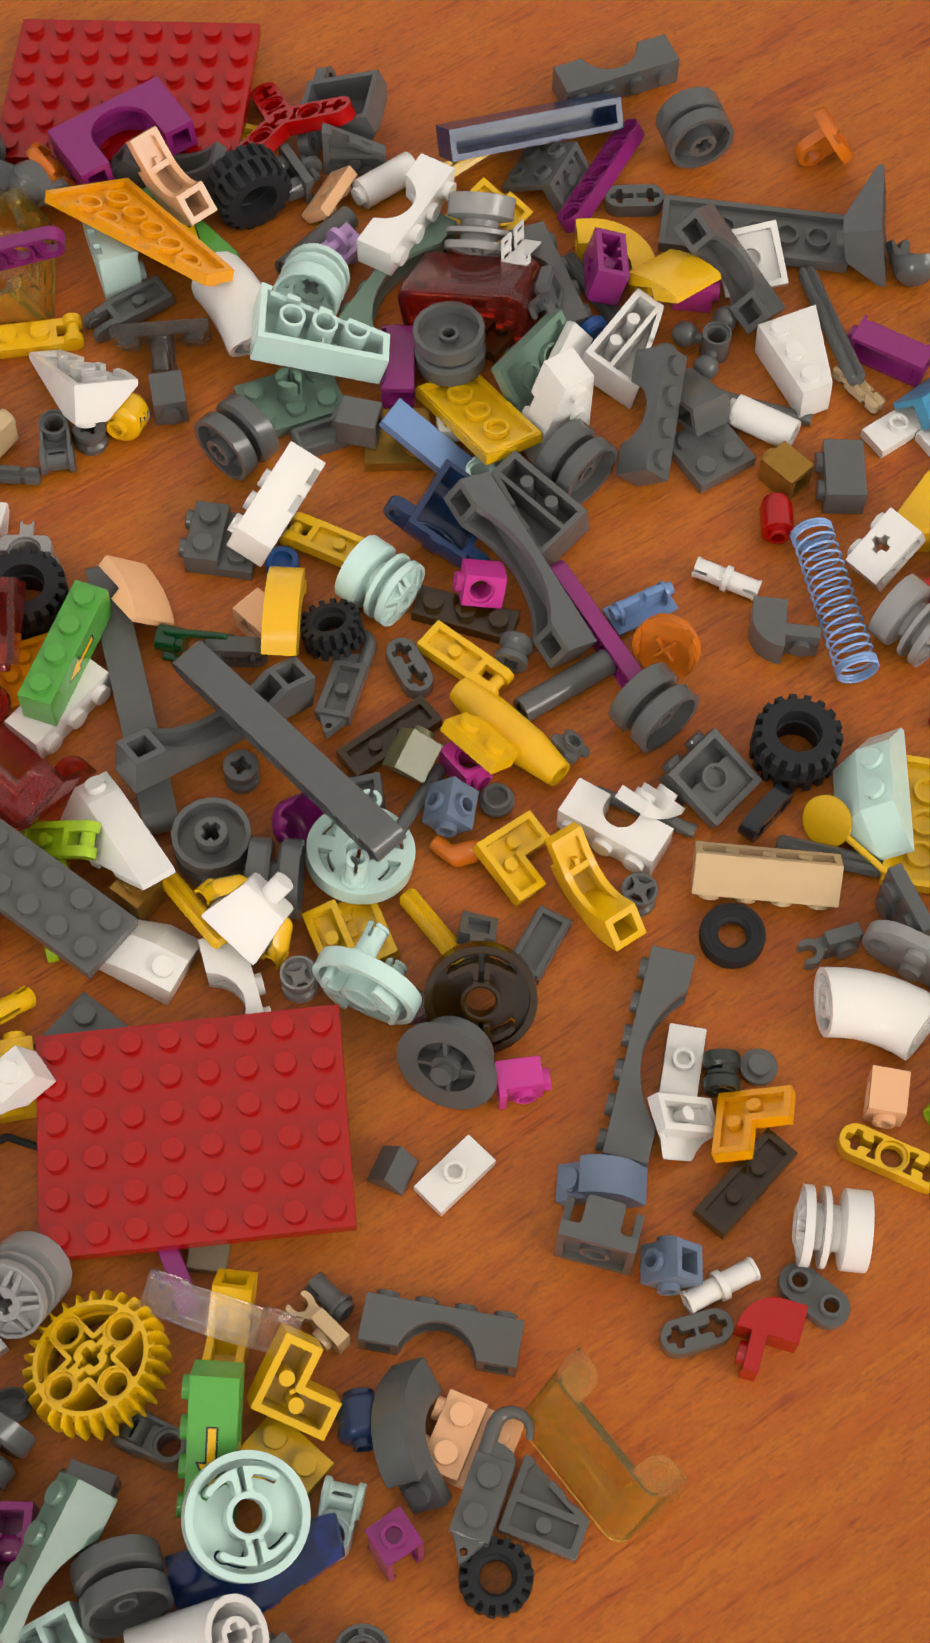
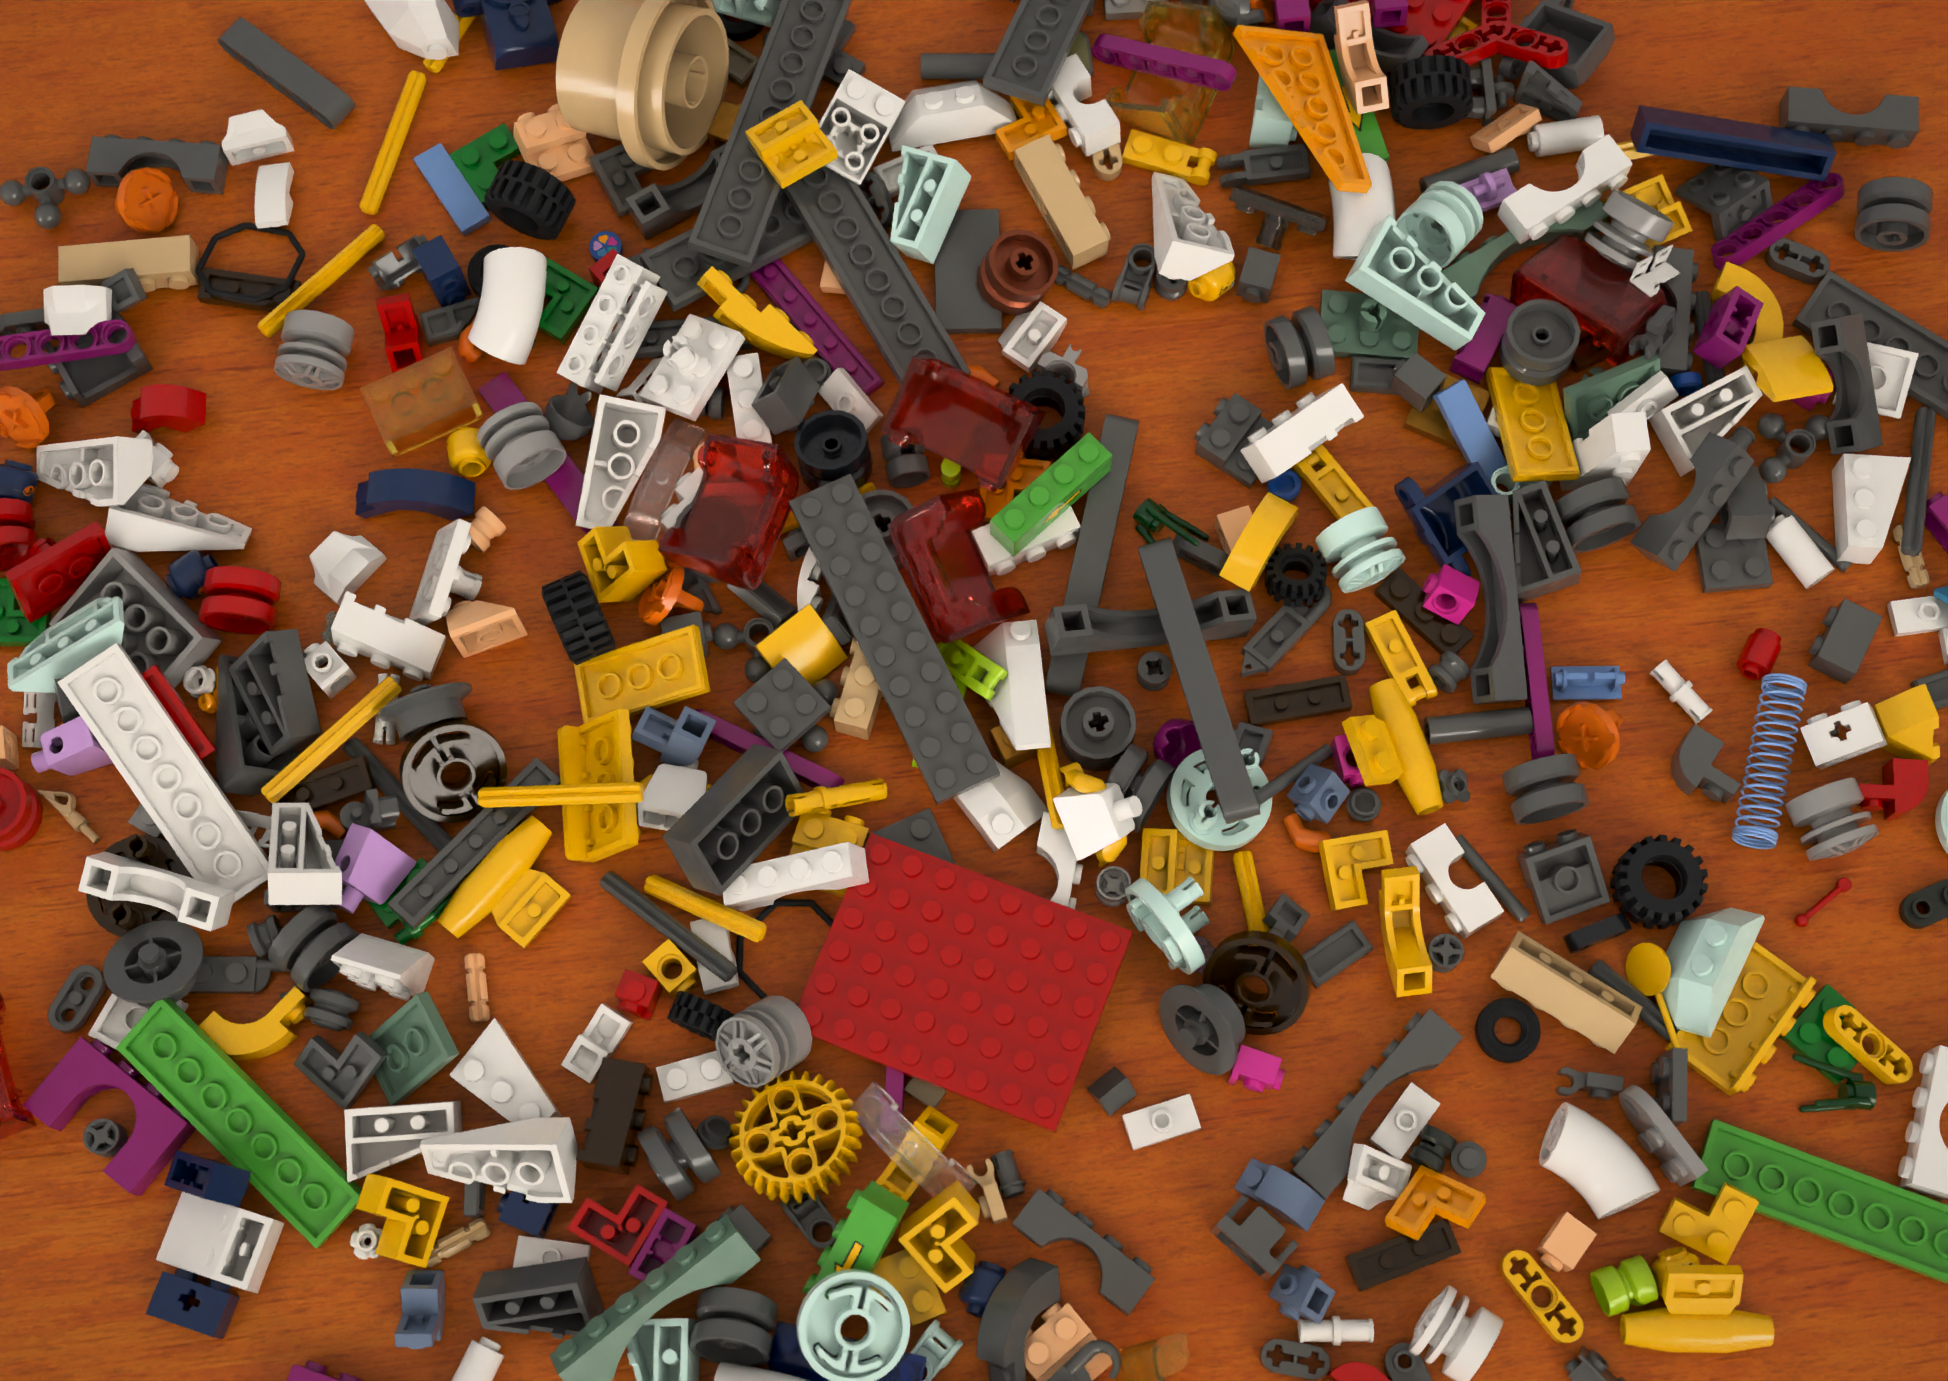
camera: 30 degrees right, 10 degrees up
(139, 591) = (1143, 466): light nougat slope -> none
(413, 753) = (1309, 728): brick -> none
(651, 802) = (1497, 876): white slope -> none
(785, 470) = (1793, 610): pearl gold brick -> none

